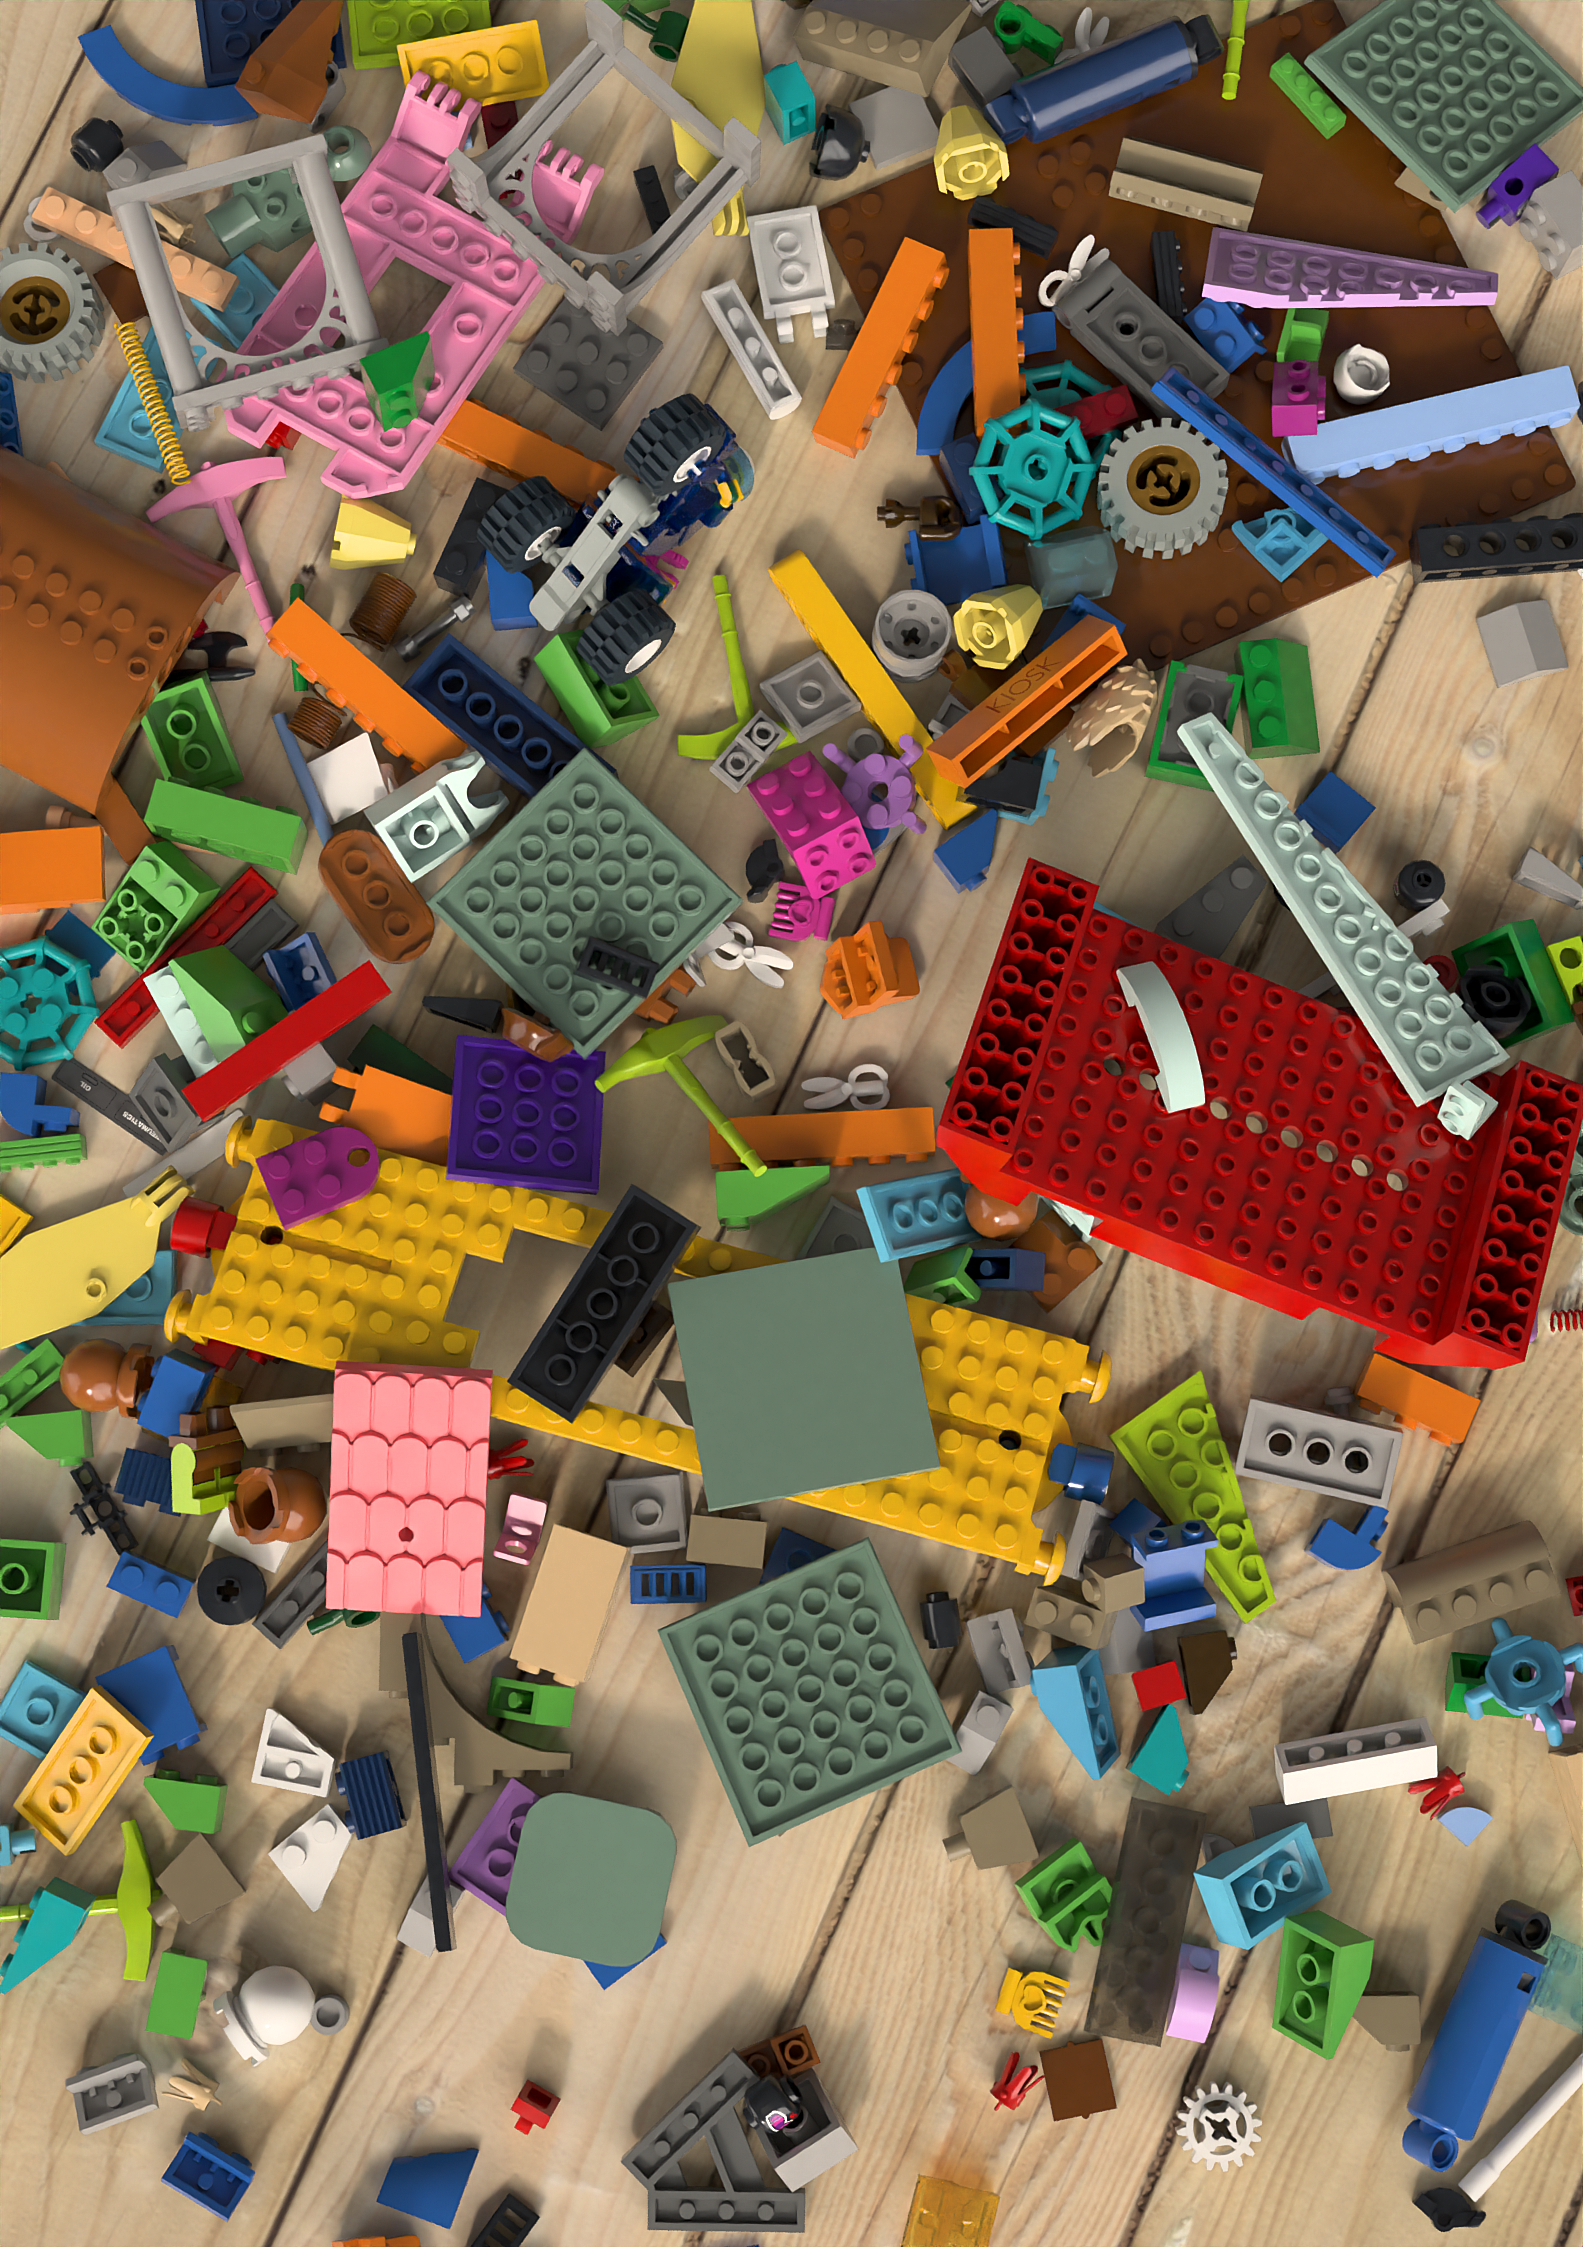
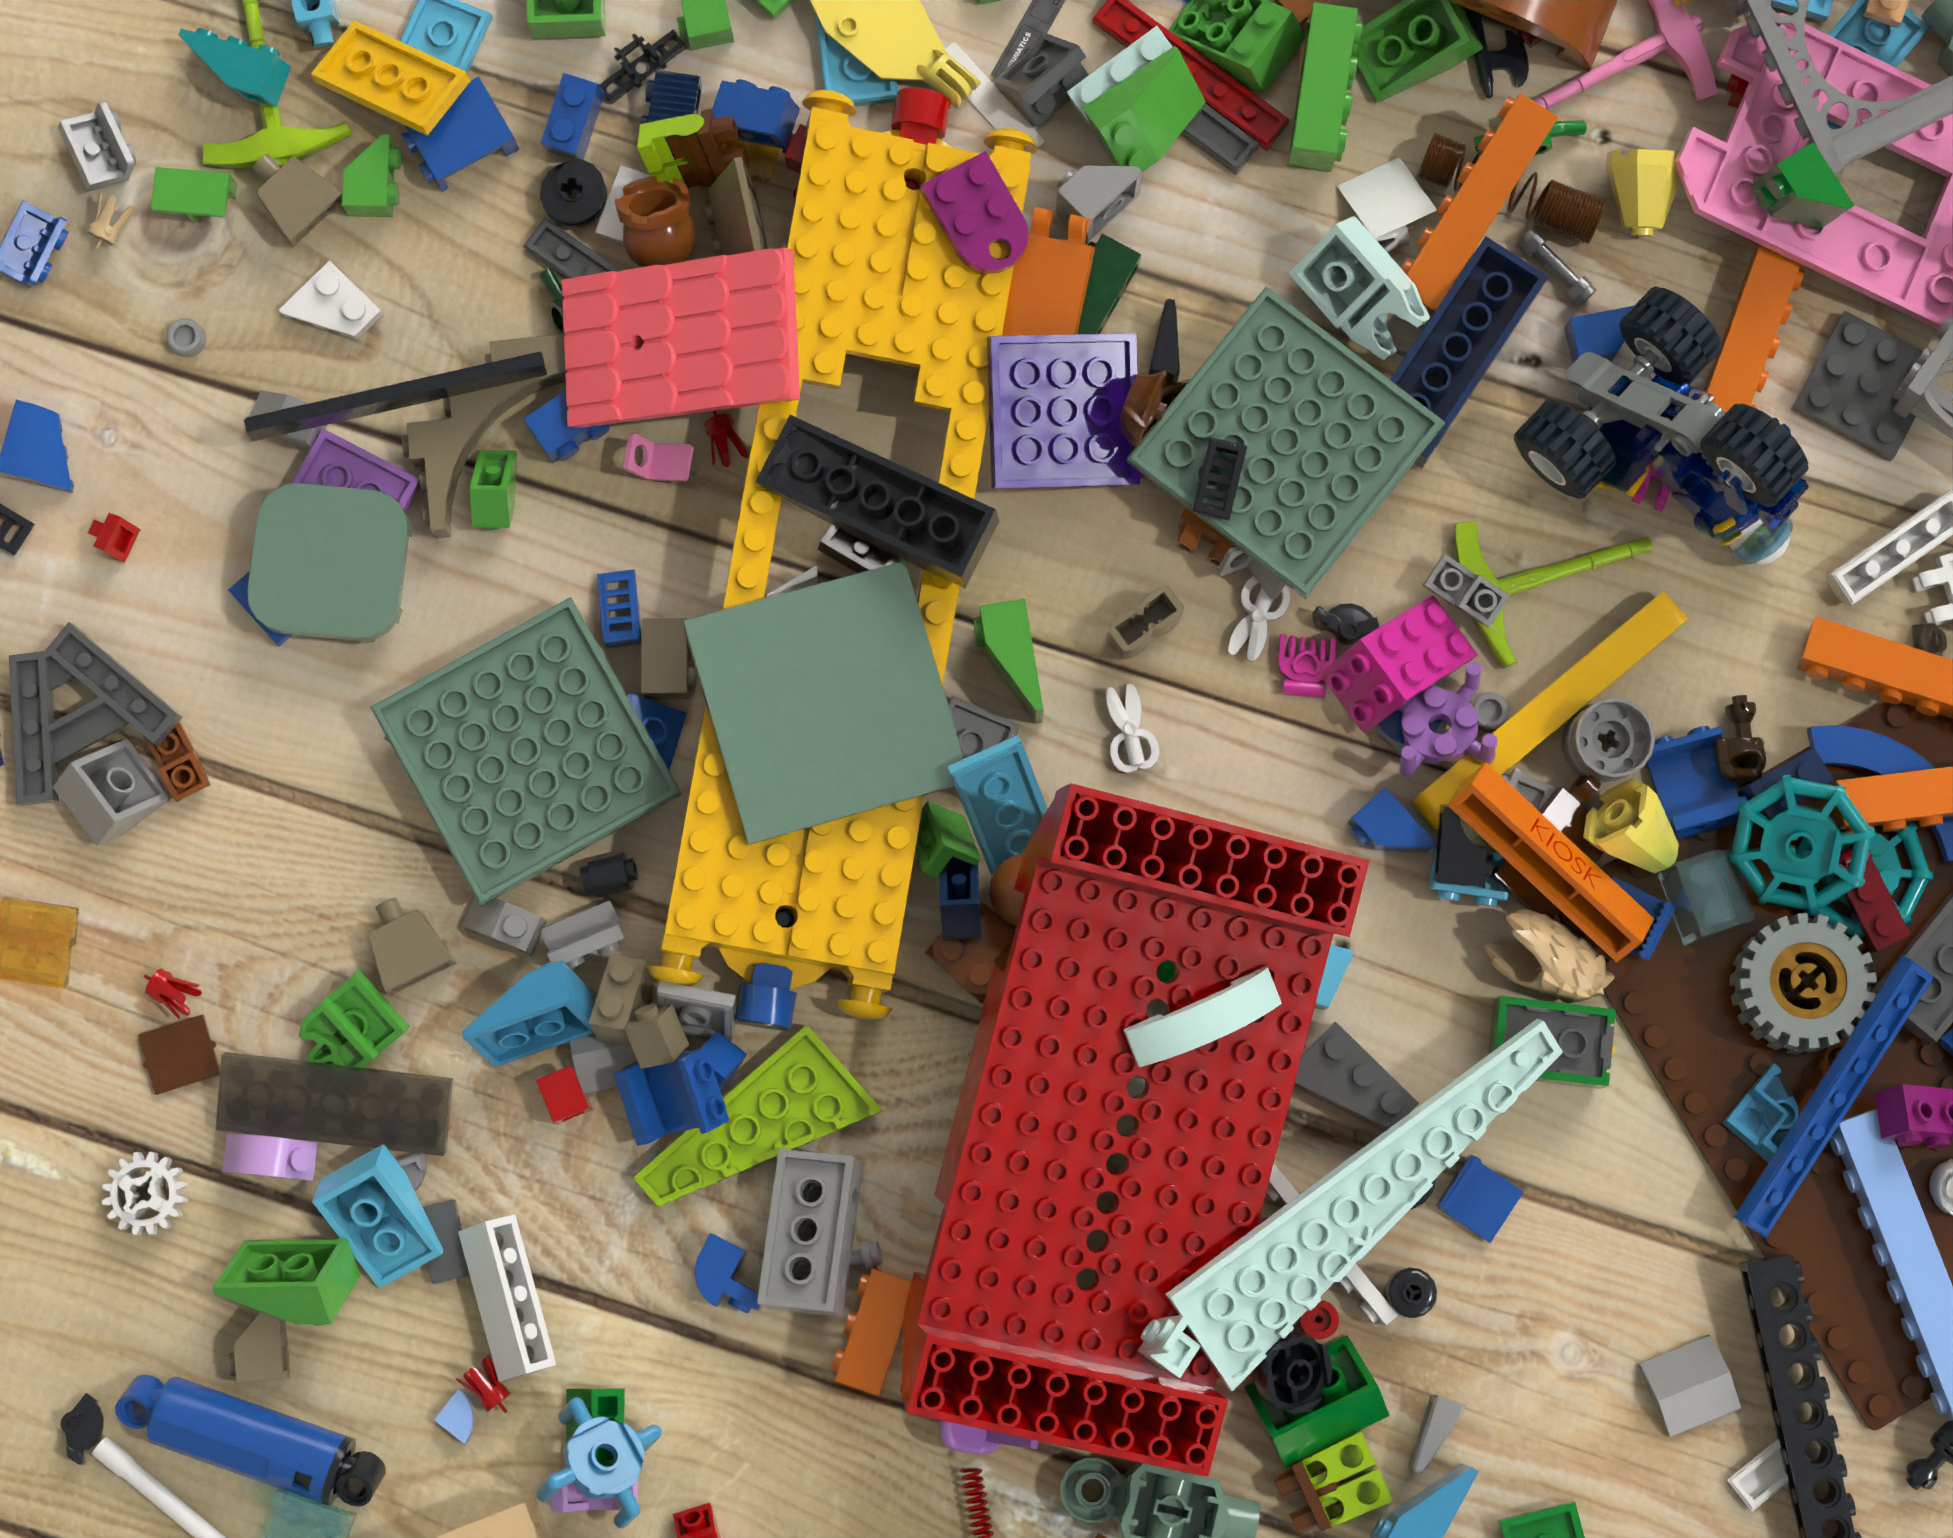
camera: 80 degrees right, 0 degrees up
(104, 1375) = (765, 46): dark orange tile -> none
(269, 2010) = (182, 277): white tile -> none
(286, 1041) = (1108, 168): red tile -> none
(291, 1758) = (420, 271): white wing -> none
(299, 970) = (1182, 182): blue bracket -> none
(303, 778) = (1290, 209): medium blue bar -> none
(370, 1795) = (392, 349): dark blue brick -> none
(376, 896) = (1270, 242): dark orange tile -> none
(464, 555) = (1627, 281): black arch -> none
(570, 1605) = (589, 512): tan brick -> none
(594, 709) = (1487, 434): bright green slope -> none
(648, 1512) = (686, 579): light grey tile -> none
(664, 1051) = (1146, 541): lime piece -> none
(772, 2102) = (133, 757): black head -> none
(810, 696) = (1533, 648): light grey tile -> none
(830, 1138) = (1073, 692): orange brick -> none
(868, 972) = (1252, 737): orange piece -> none
(1027, 1999) = (252, 996): yellow piece -> none
(1162, 1753) = (496, 1106): teal slope -> none
(1205, 1665) = (589, 1141): dark brown slope -> none
(1276, 699) = (1594, 1129): green slope -> none
(1472, 1581) = (695, 1402): dark tan brick -> none

